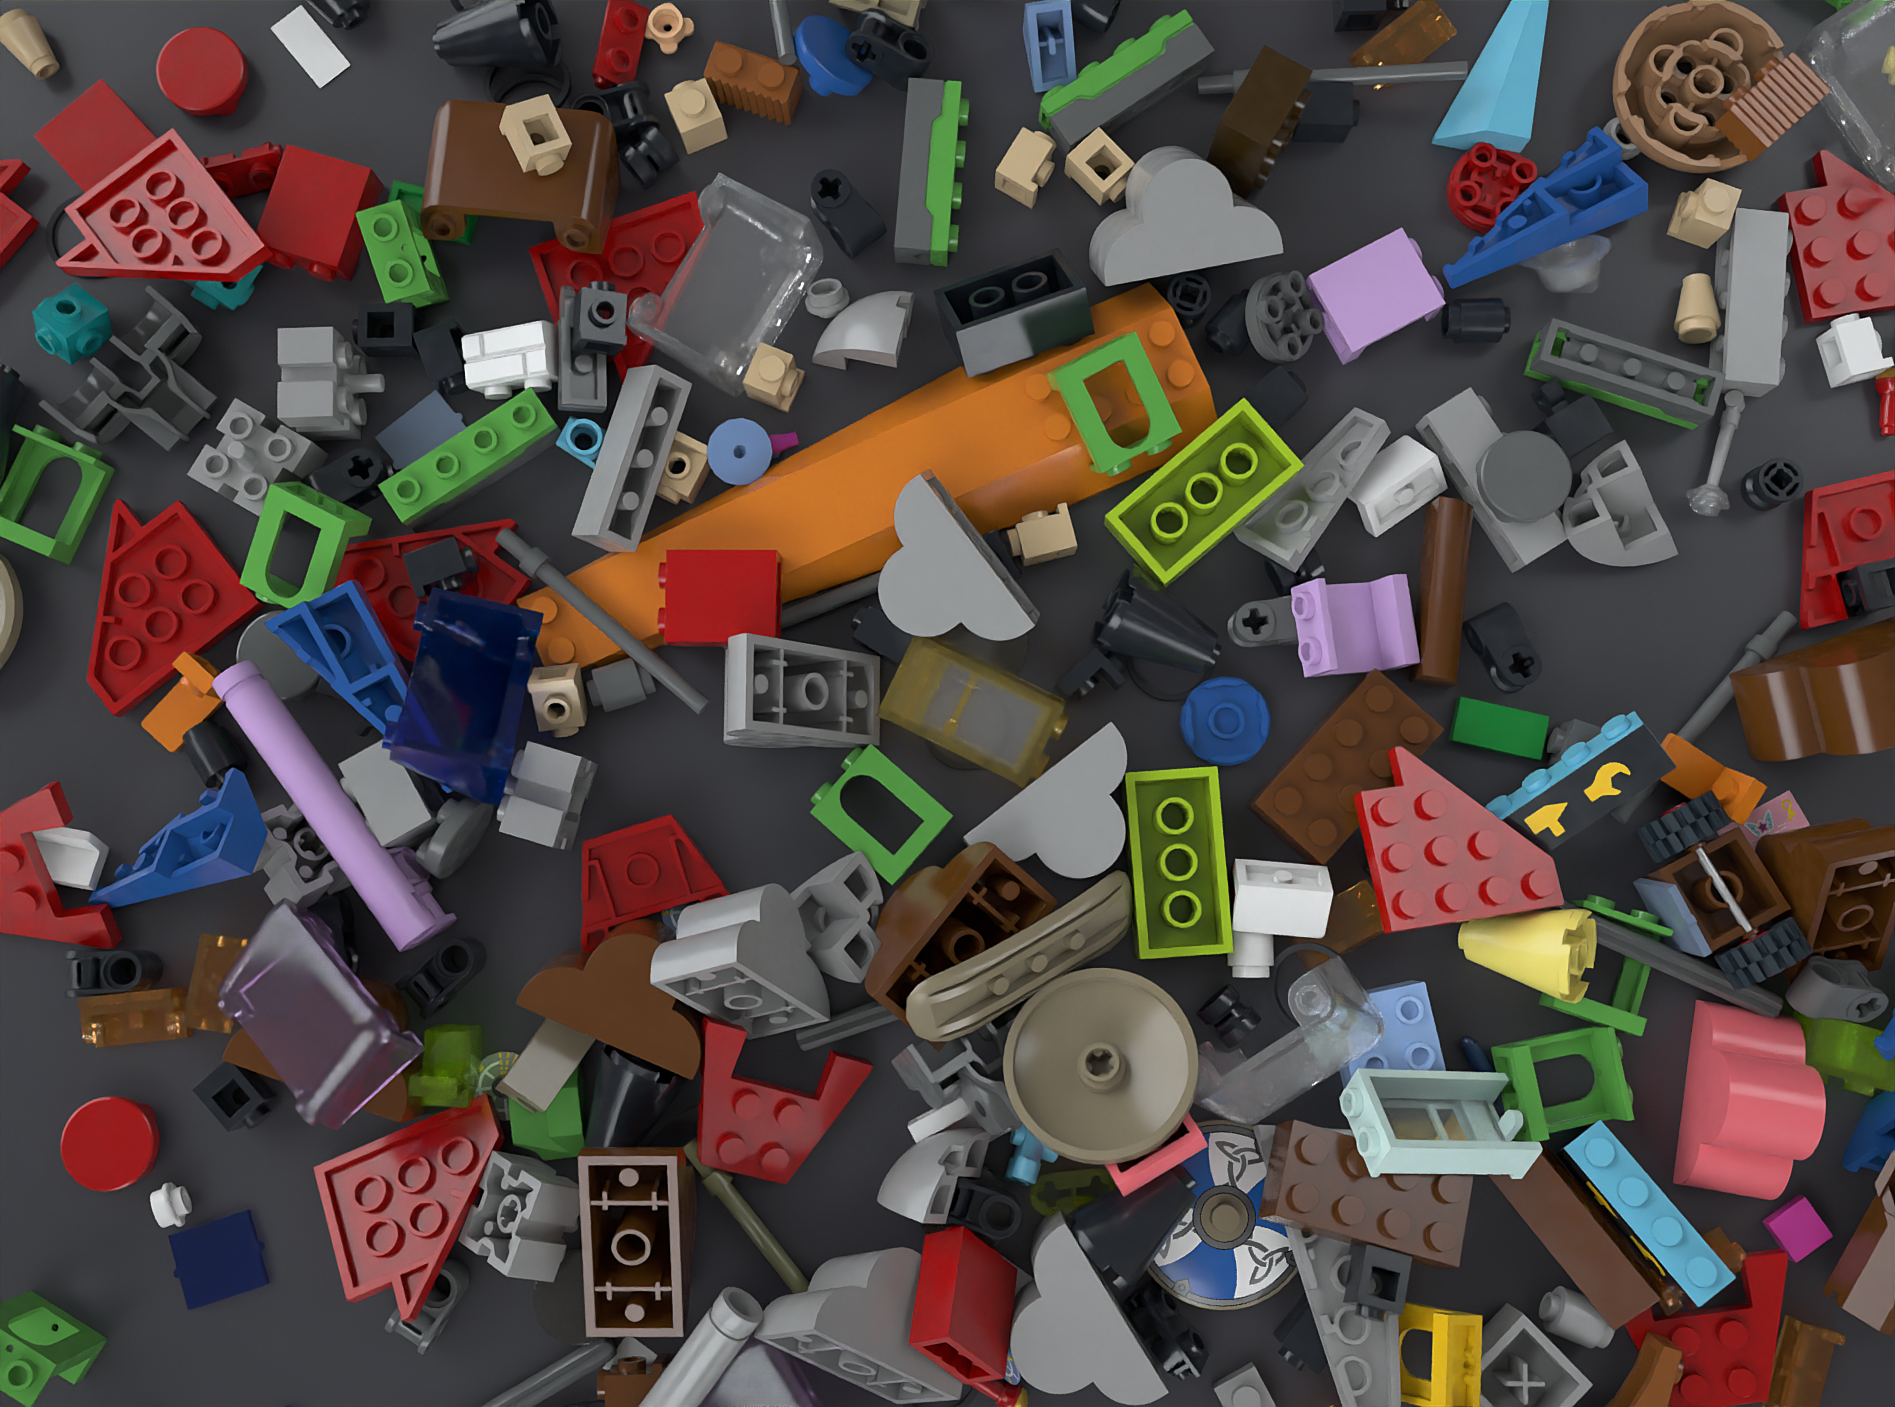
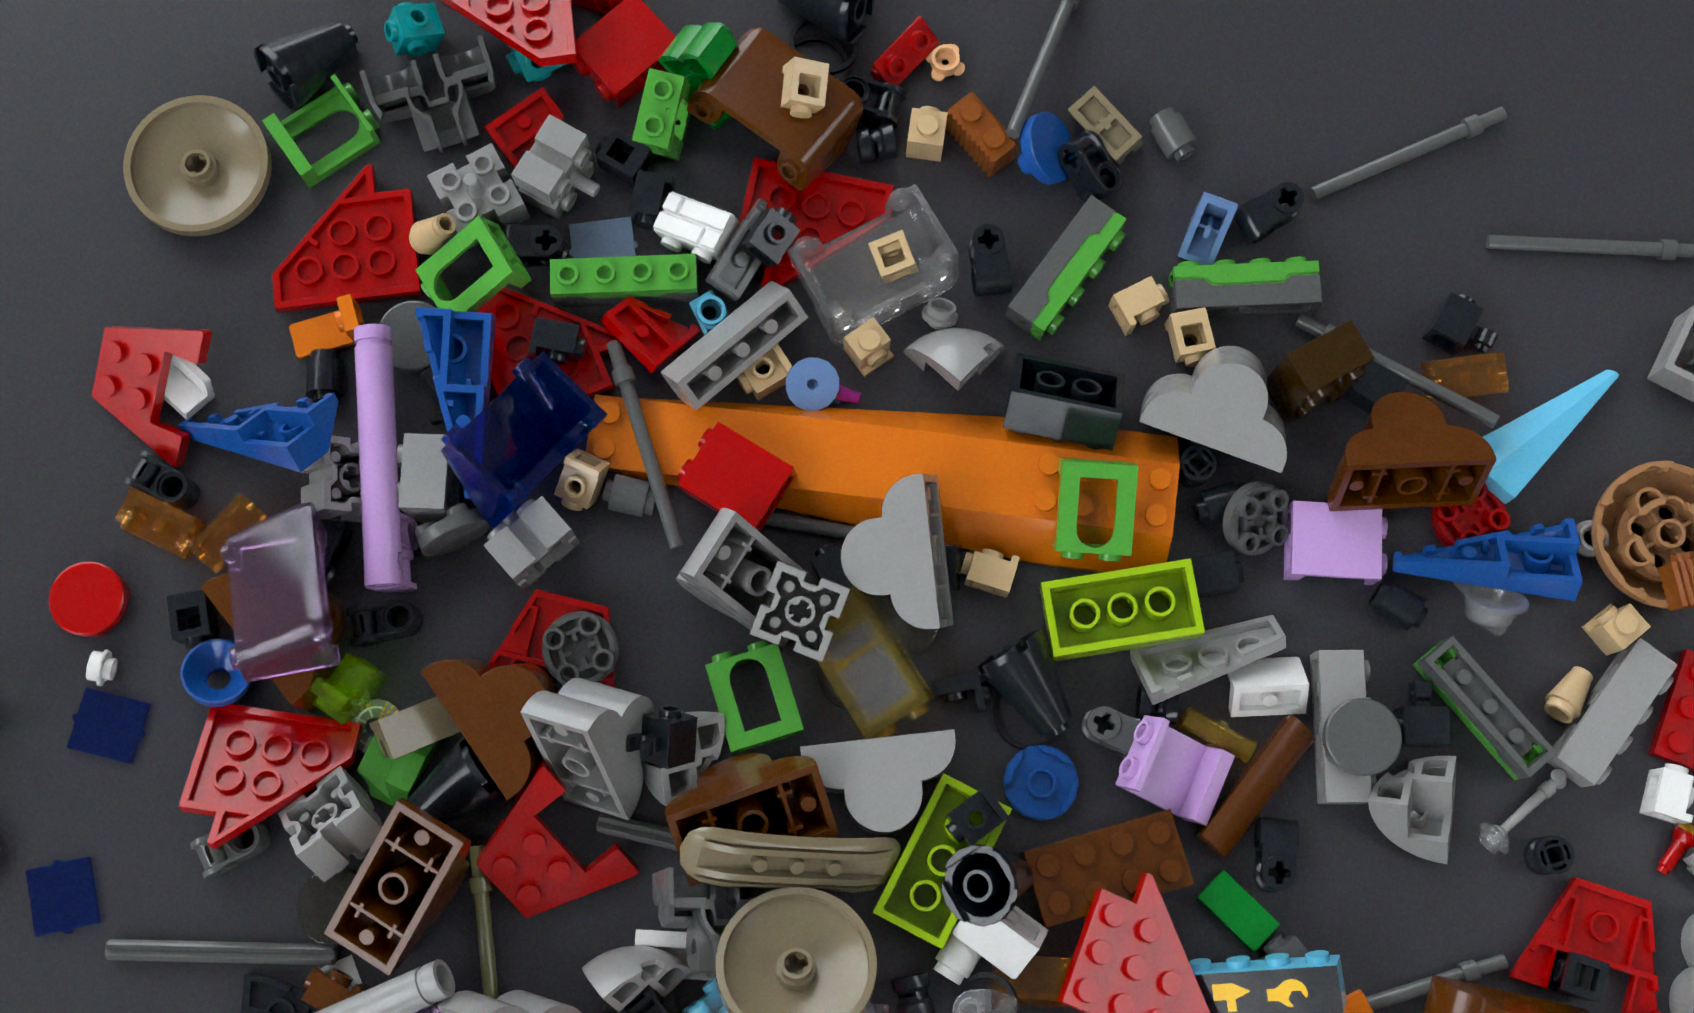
camera: 30 degrees right, 5 degrees down
(232, 533) = (431, 233): none -> tan cone
(253, 363) = (518, 126): none -> red wing
(276, 1137) = (201, 664): none -> blue piece
(397, 164) = (699, 50): none -> green brick
(531, 500) = (648, 332): none -> red wing
(668, 874) = (580, 647): none -> dark grey tile
(743, 265) = (893, 257): none -> tan brick
(817, 912) = (666, 737): none -> black brick
(878, 696) = (800, 611): none -> light grey brick
(1188, 778) = (991, 813): none -> black brick
(1242, 862) = (985, 884): none -> black cone
(1373, 563) = (1217, 734): none -> clear yellow pin
(1405, 160) = (1410, 460): none -> reddish brown brick

